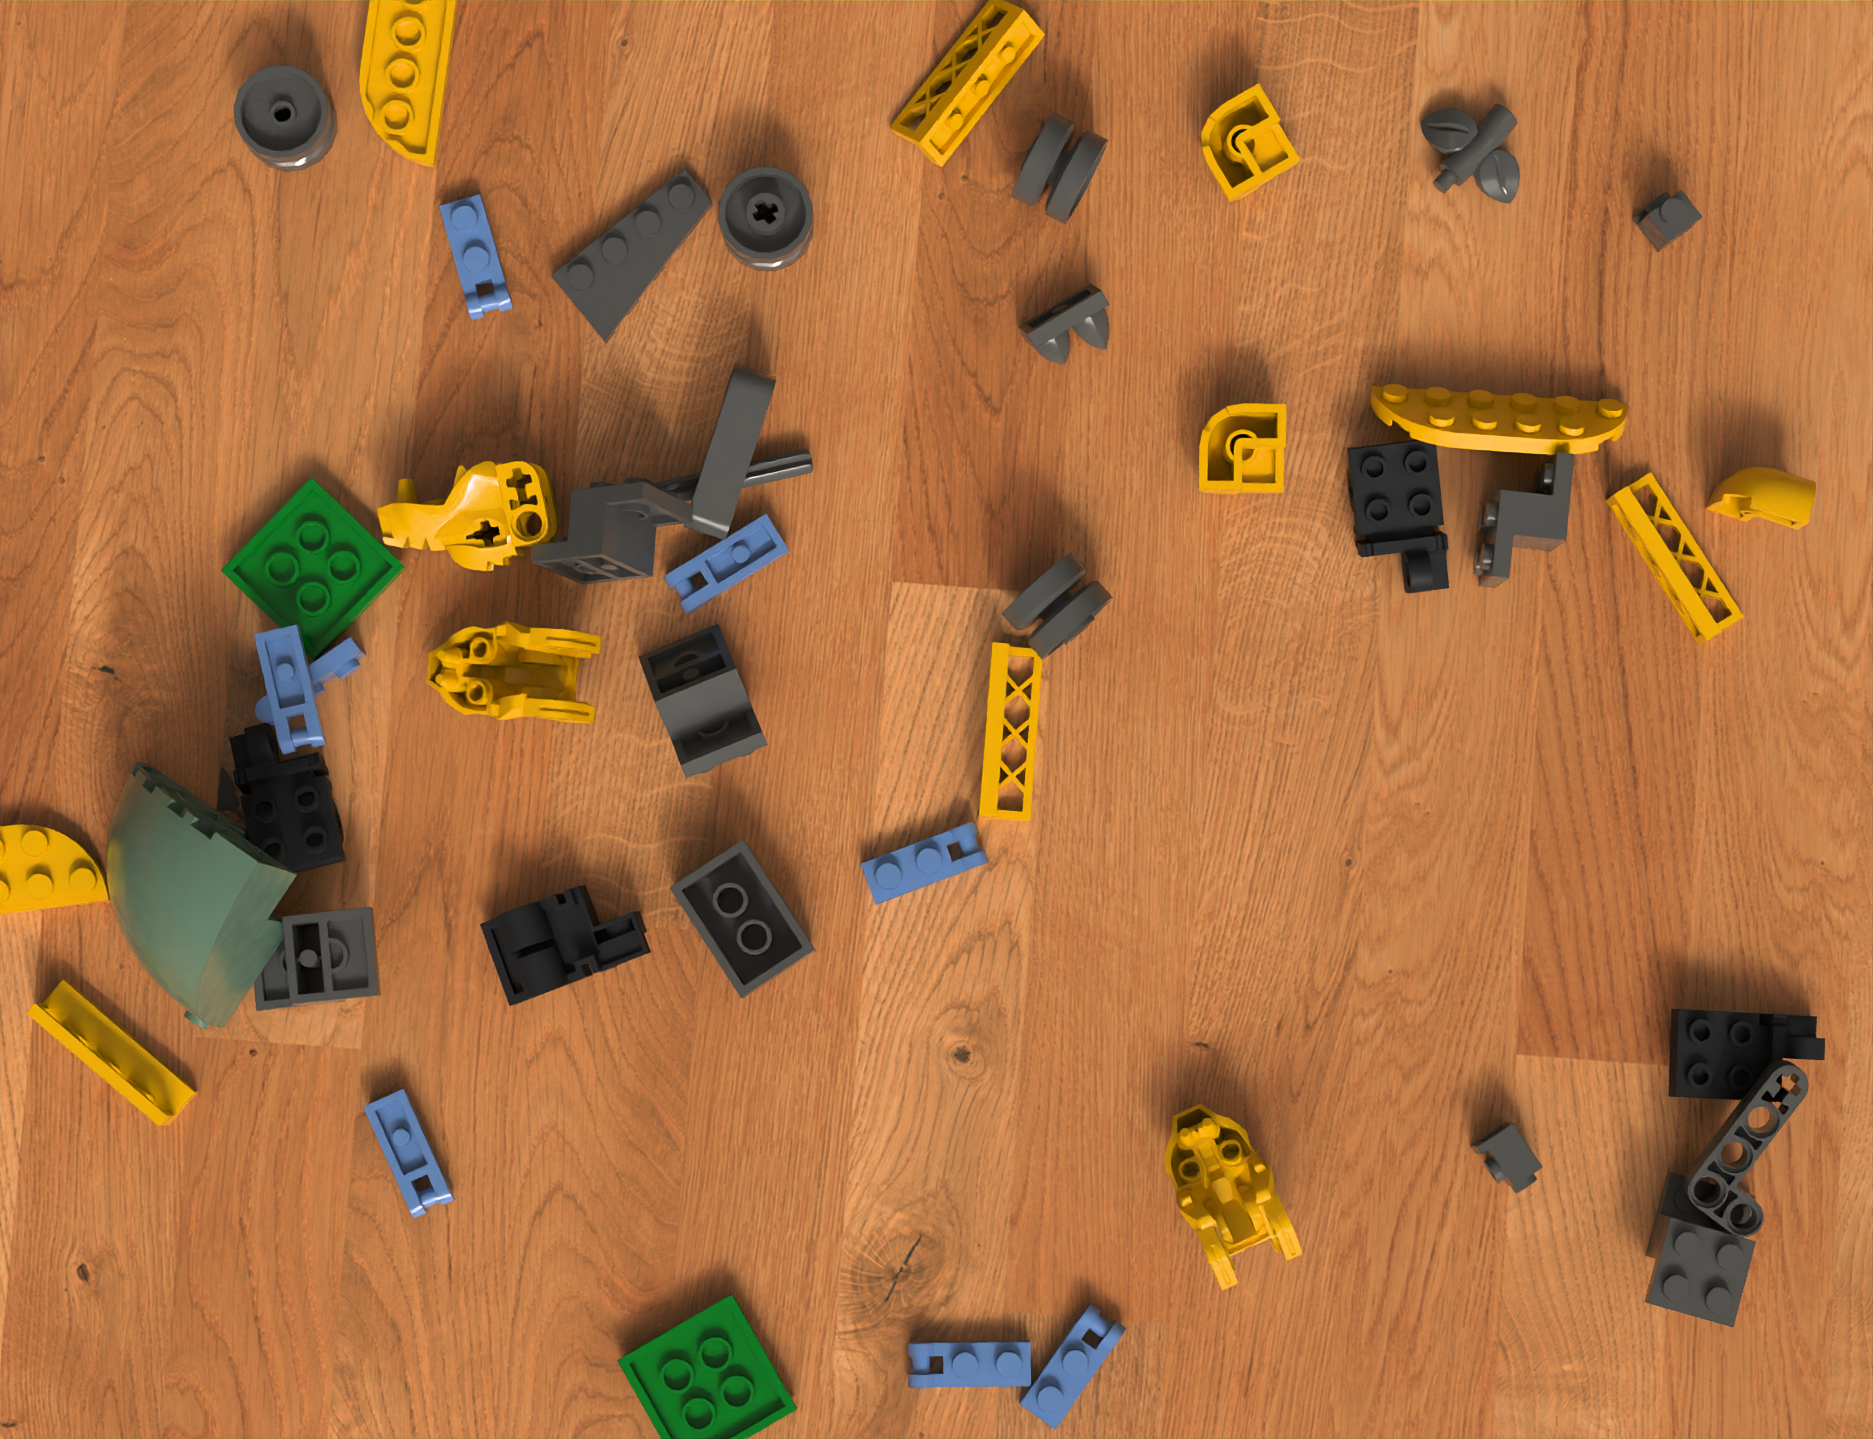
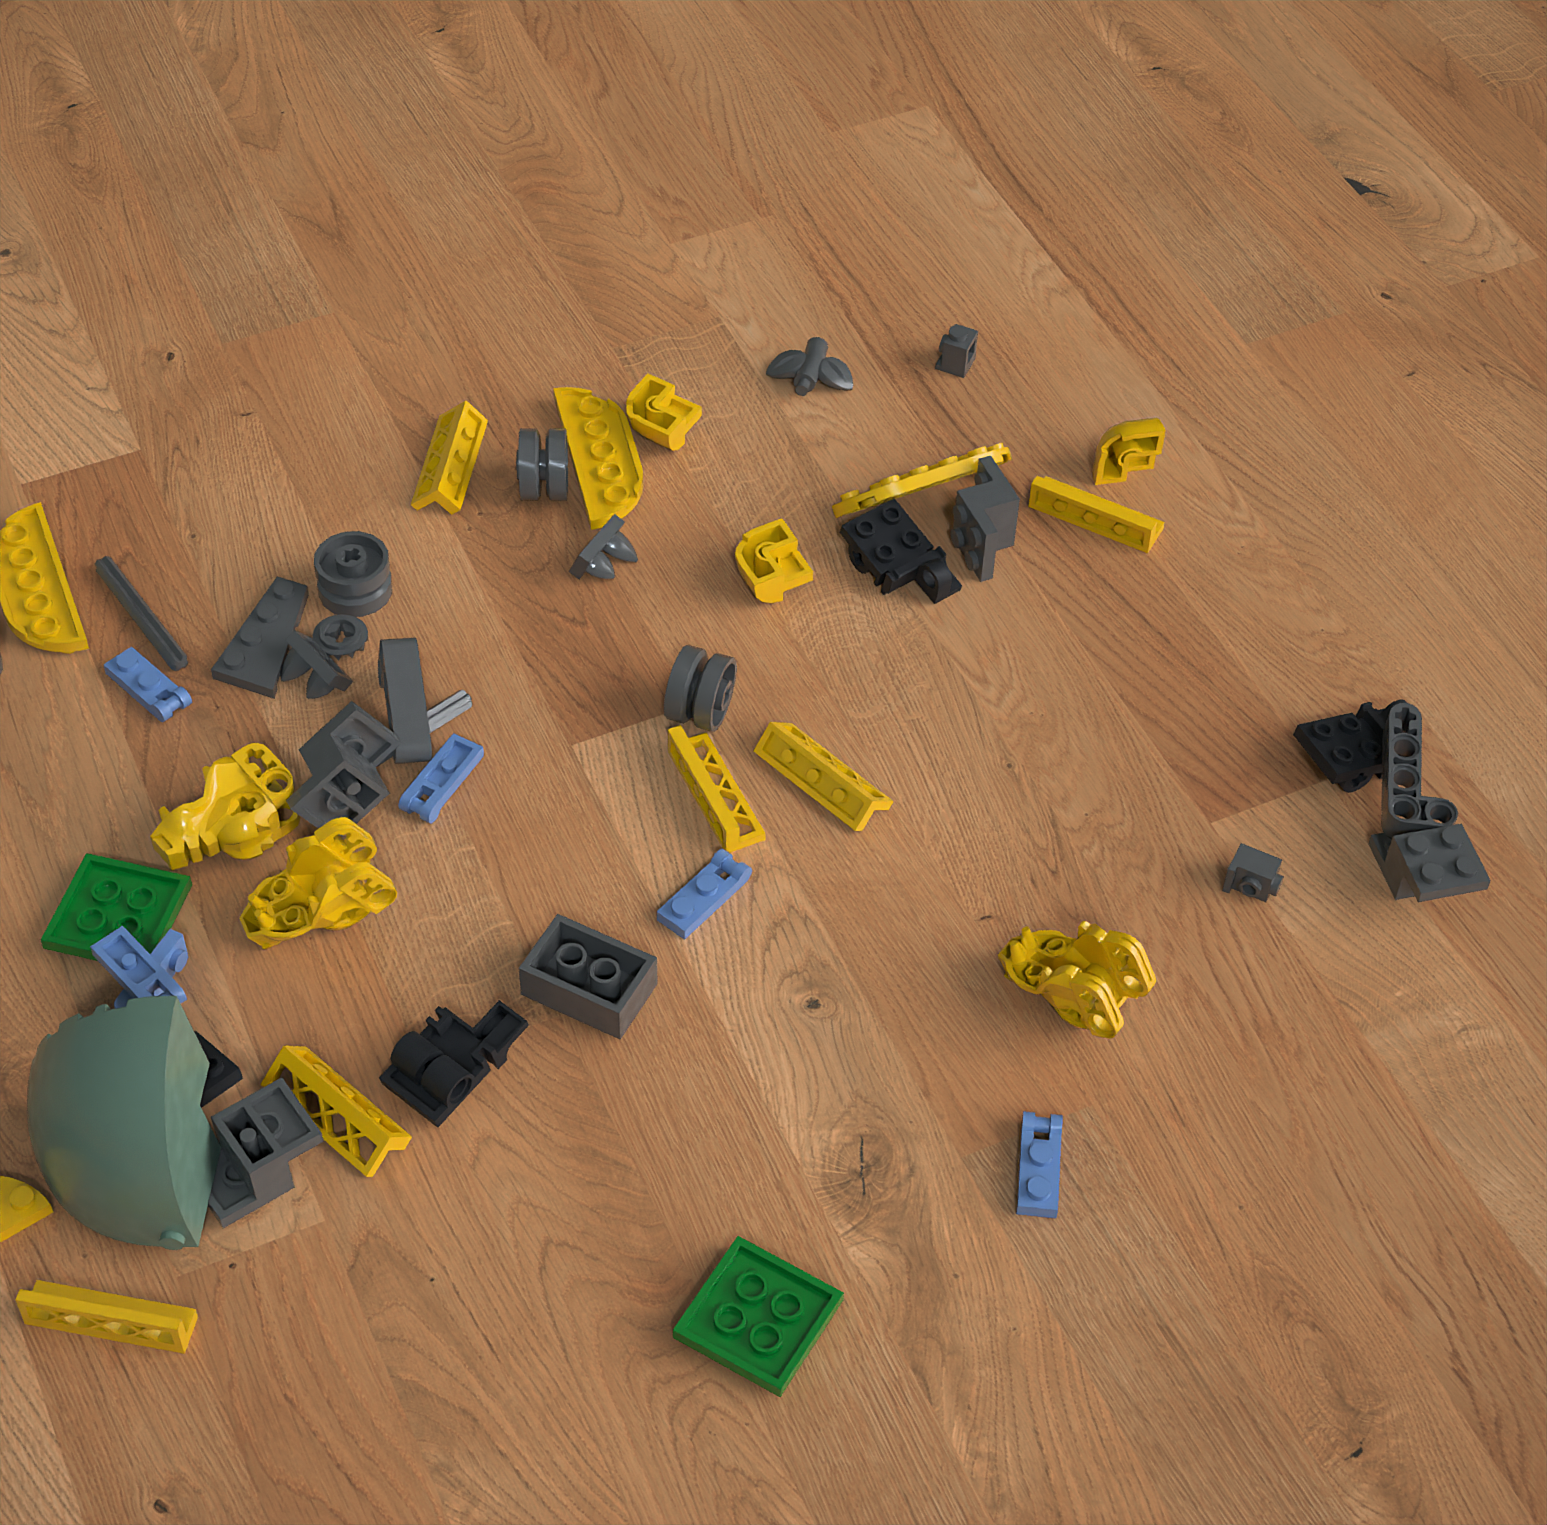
camera: 25 degrees left, 35 degrees down
(408, 1151) = (407, 1266): medium blue plate -> none
(430, 929) = (346, 1101): none -> yellow fence
(512, 143) = (141, 613): none -> dark grey axle
(664, 317) = (307, 655): none -> dark grey tile
(702, 701) = (474, 855): dark grey bracket -> none
(709, 277) = (330, 628): none -> dark grey gear
(971, 1364) = (960, 1201): medium blue plate -> none
(1128, 776) = (820, 774): none -> yellow fence
(1147, 163) = (600, 453): none -> yellow plate

